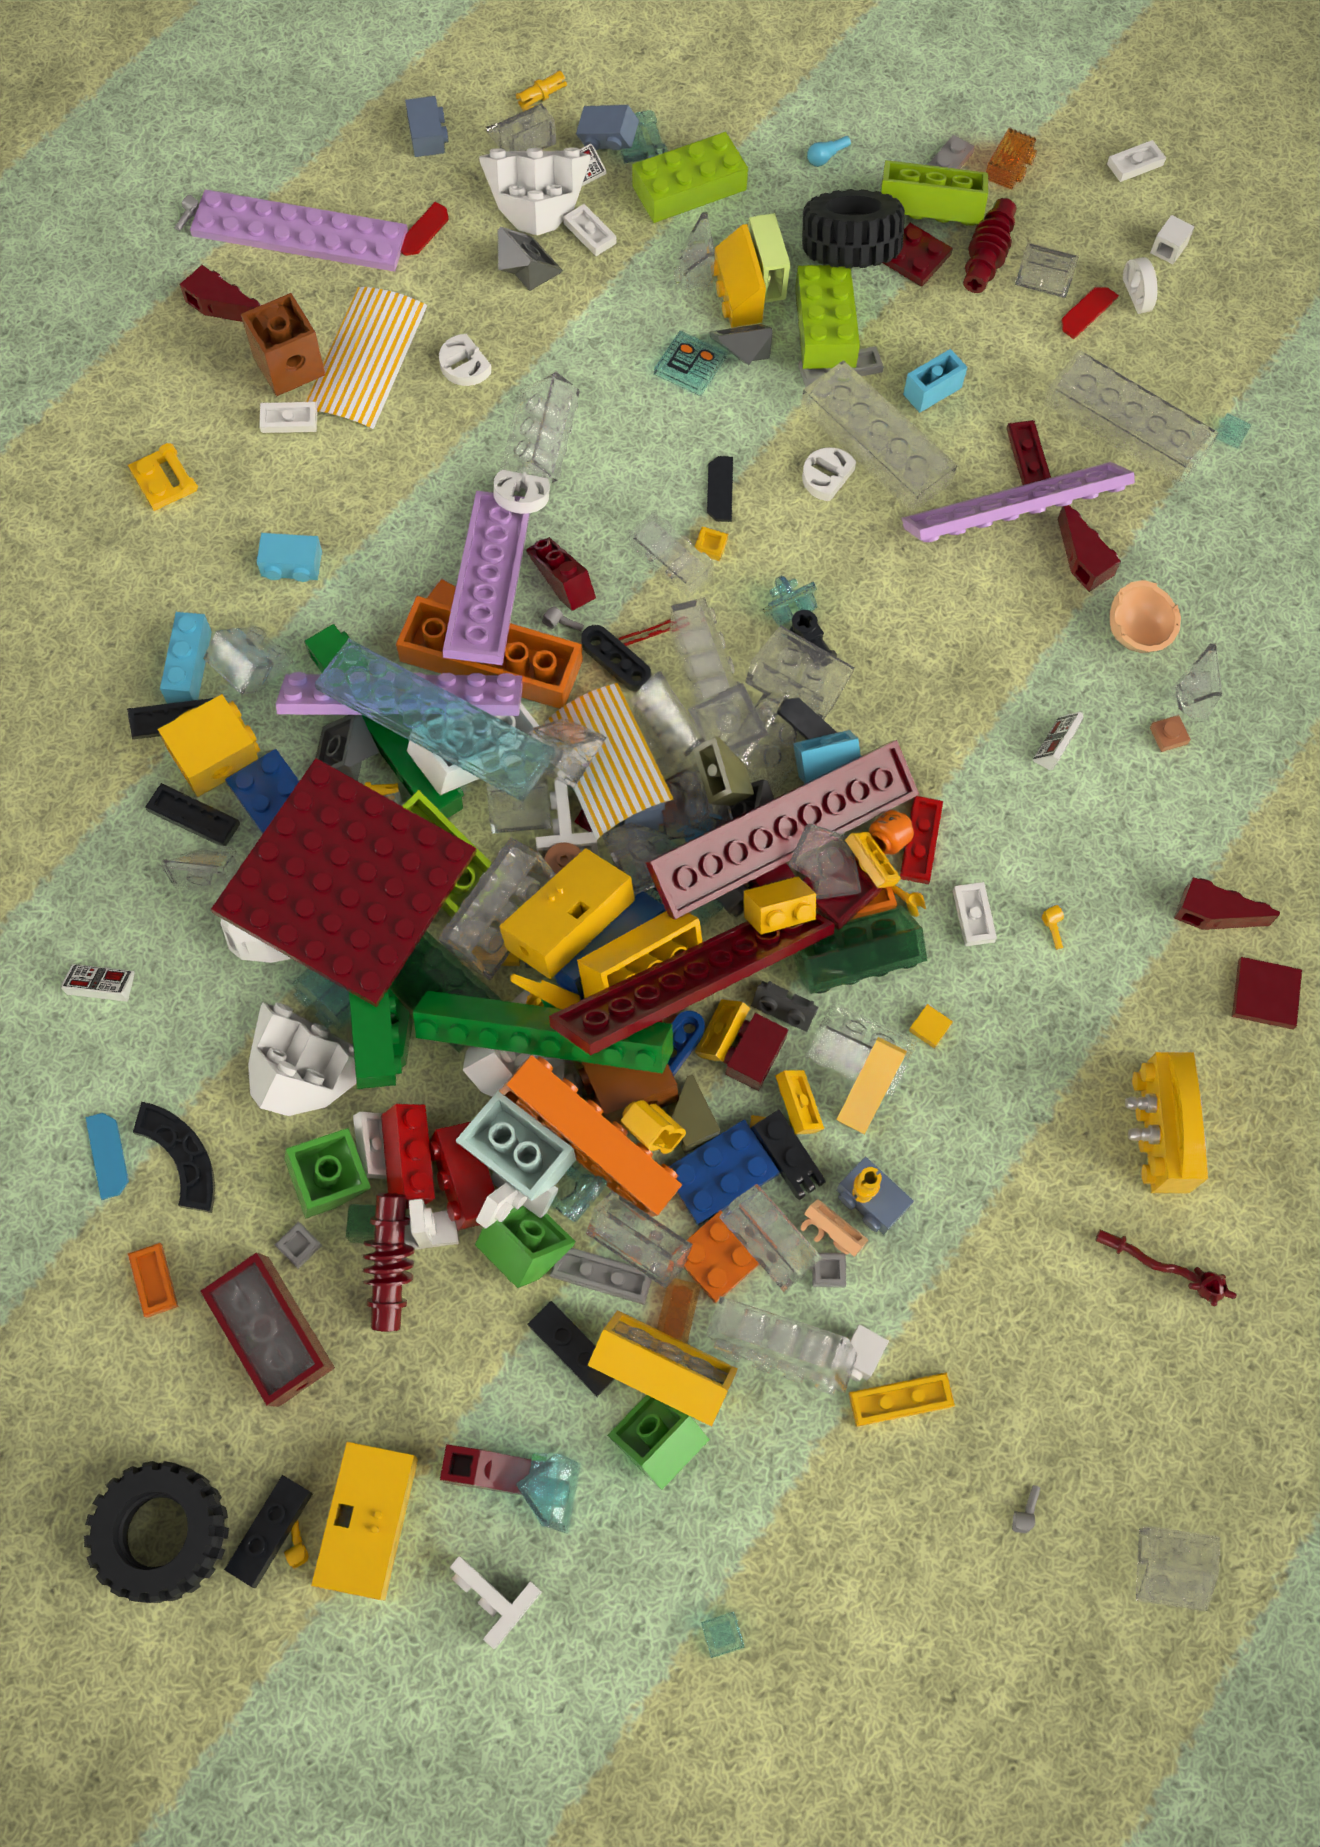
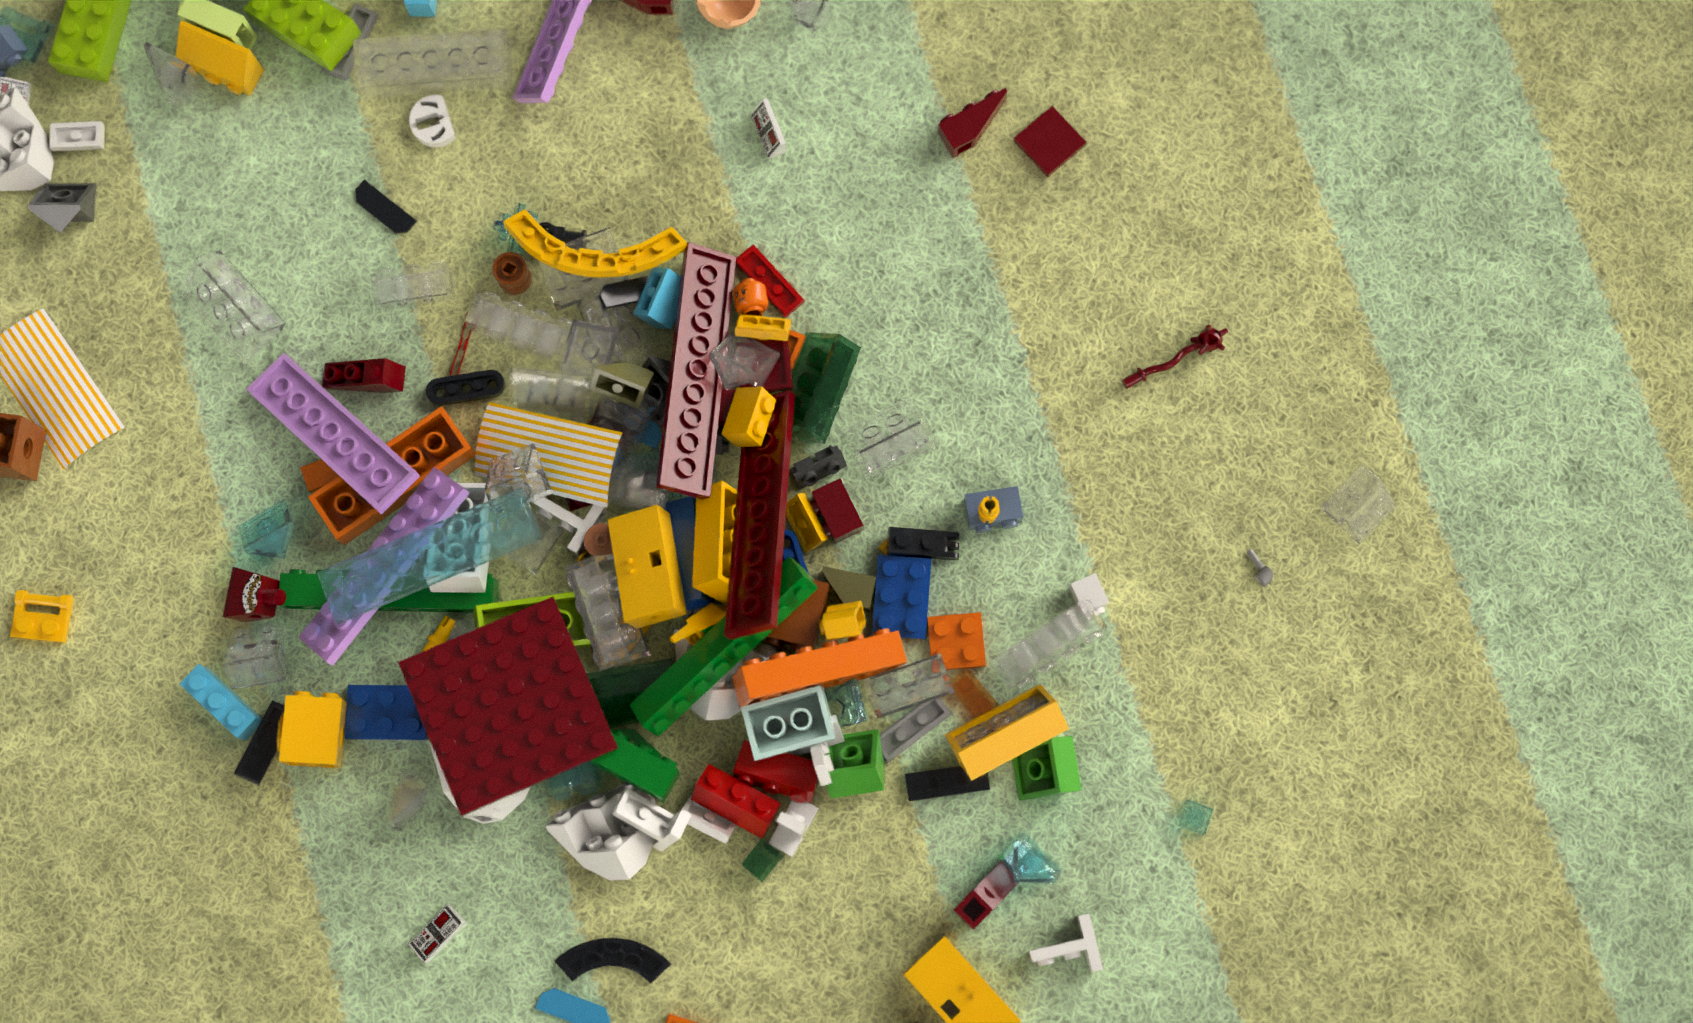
camera: 45 degrees left, 10 degrees up
(192, 815) = (355, 781): black plate -> none
(267, 1330) = (786, 978): brick -> none
(288, 417) = (65, 485): white plate -> none
(289, 556) = (192, 567): medium azure brick -> none
(296, 617) = (252, 596): none -> dark red torso
(298, 1245) = (739, 919): light grey tile -> none
(326, 1172) = (705, 864): bright green slope -> none
(332, 1085) = (651, 819): none -> white bracket
(346, 745) = (389, 637): dark grey slope -> none
(361, 592) = (268, 532): none -> clear light blue slope
(389, 1262) = (803, 863): dark red piece -> none
(457, 349) = (105, 313): white piece -> none
(508, 482) = (260, 356): white piece -> none
(554, 615) = (396, 406): light grey hand -> none
(690, 363) = (258, 150): clear light blue tile -> none
(711, 542) = (424, 250): yellow tile -> none
(746, 342) = (273, 96): dark grey slope -> none
(747, 621) = (512, 273): none -> dark orange wheel
(770, 1237) = (971, 598): clear brick -> none
(799, 1102) = (893, 508): yellow plate -> none
(811, 674) = (592, 262): none -> yellow plate
(830, 1271) = (1018, 575): light grey tile -> none
(845, 1236) = (1004, 548): light nougat plate -> none
(871, 1085) = (920, 453): yellow tile -> none
(901, 1399) = (1135, 593): yellow tile -> none
(912, 900) = (808, 323): yellow hand -> none
(930, 1026) = (905, 380): yellow tile -> none
(974, 914) = (850, 288): white plate -> none
(1051, 918) = (891, 240): yellow hand -> none
(1170, 733) = (822, 49): nougat plate -> none
(1172, 1123) = (1090, 277): yellow piece -> none

